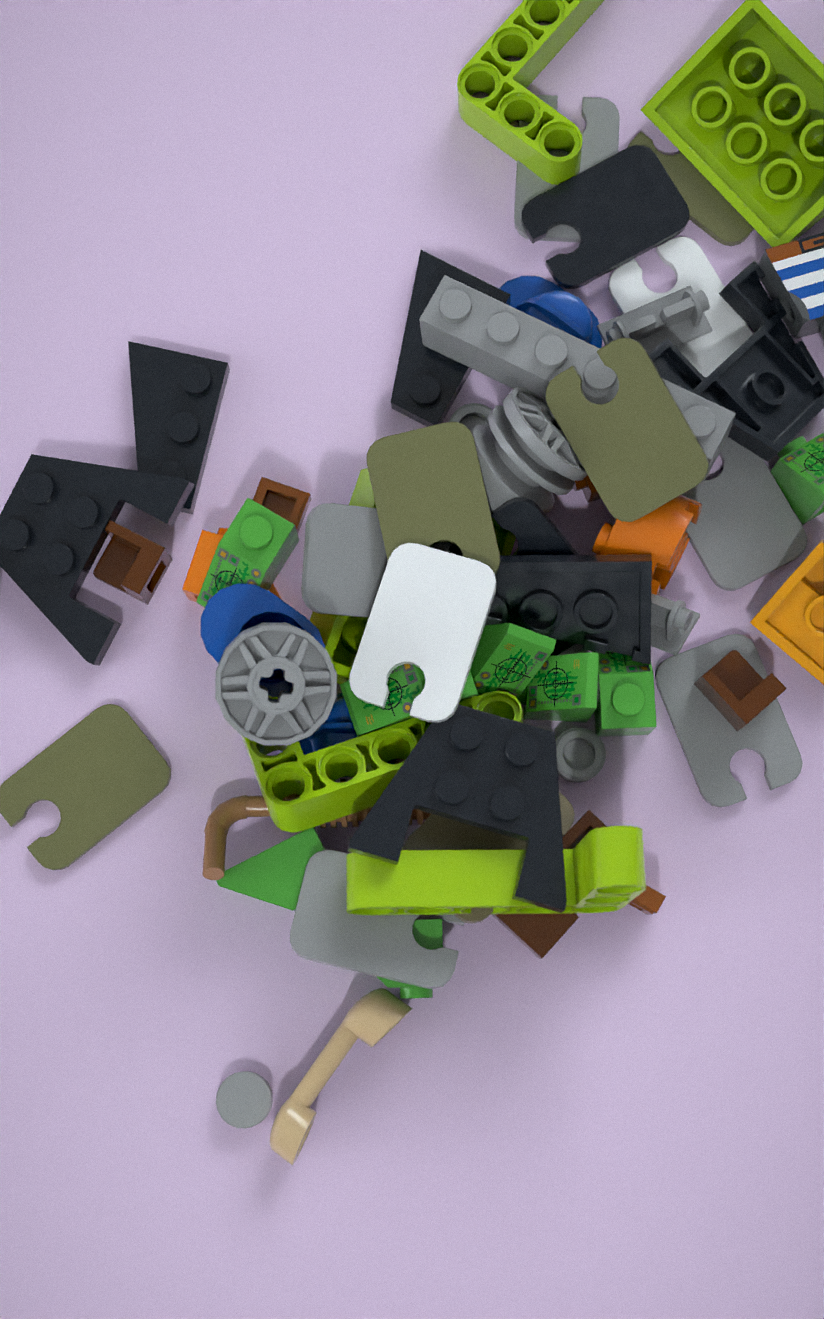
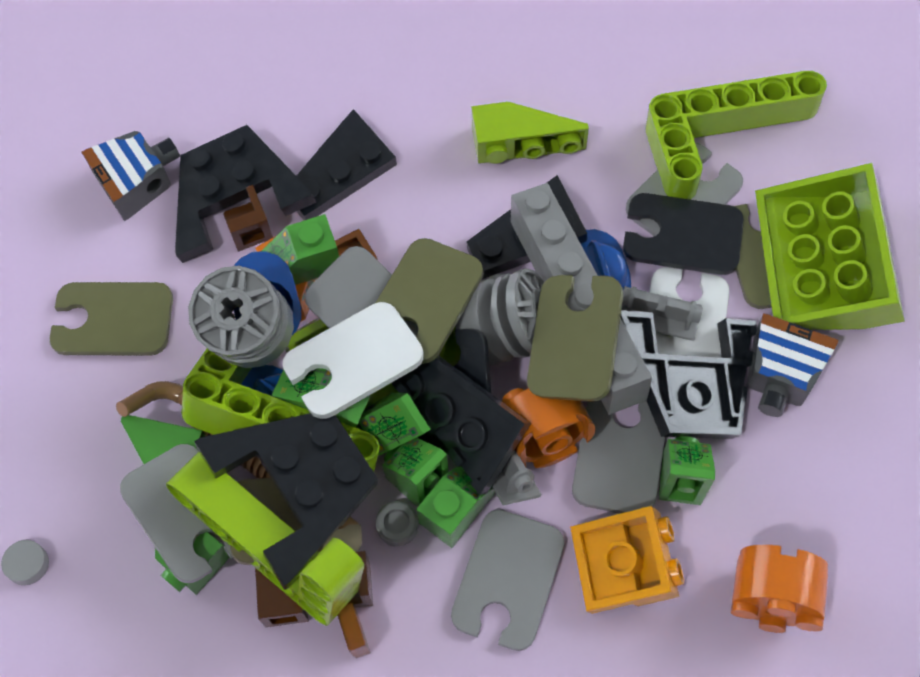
camera: 40 degrees right, 15 degrees down
(335, 230) = (517, 131): none -> lime slope
(369, 1021) = (132, 573): tan piece -> none
(738, 689) = (527, 561): reddish brown panel -> none

